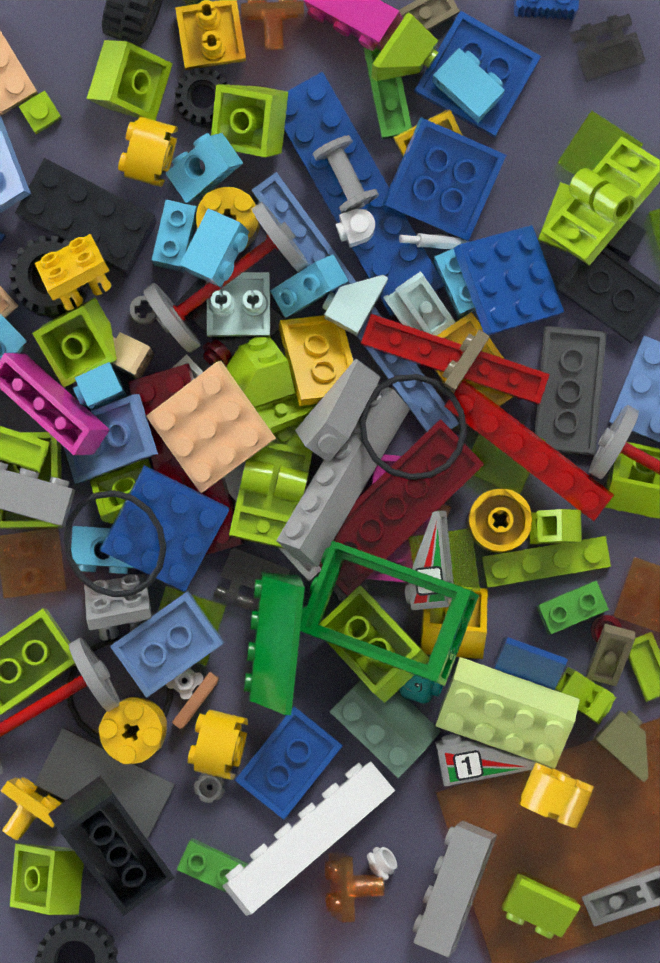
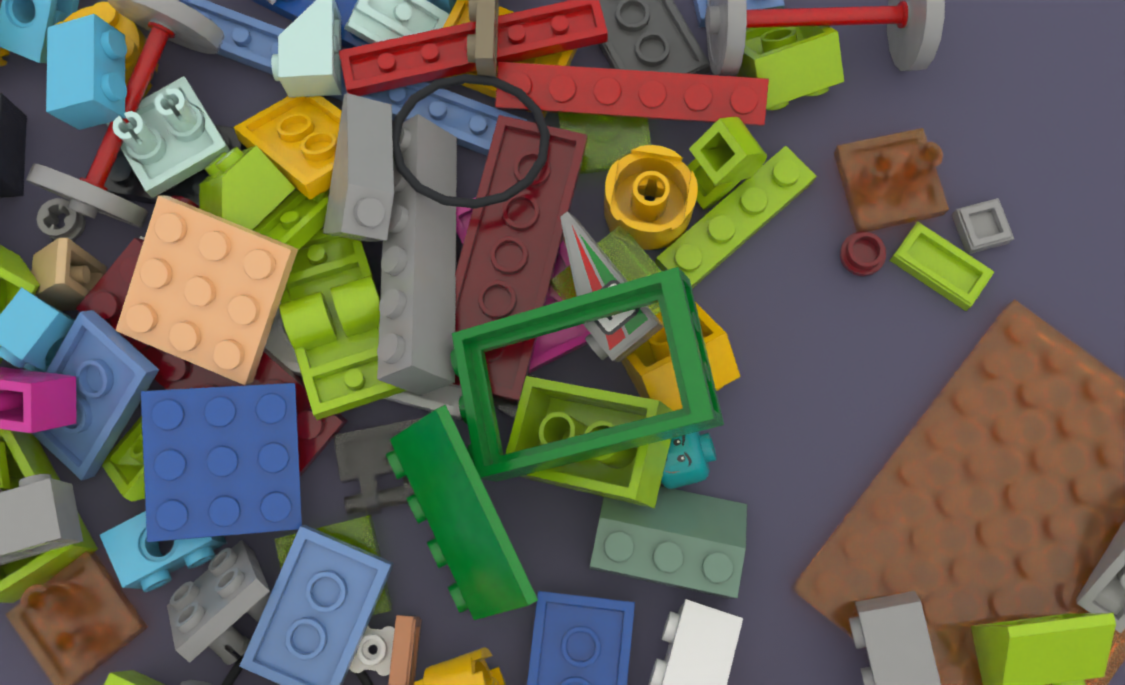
camera: 30 degrees left, 10 degrees down
(66, 540) = (100, 565): black piece -> none
(174, 235) = (43, 133): medium azure brick -> none
(309, 285) = (241, 64): medium azure brick -> none
(470, 760) = (812, 514): slope -> none
(507, 712) = (821, 421): yellowish green brick -> none
(529, 663) = (804, 347): blue slope -> none
(556, 795) = (959, 485): yellow brick -> none
(572, 607) = (805, 247): bright green brick -> none
(594, 699) = (896, 343): lime brick -> none
(610, 655) = (893, 273): dark tan plate -> none
(626, 742) = (994, 366): olive slope -> none

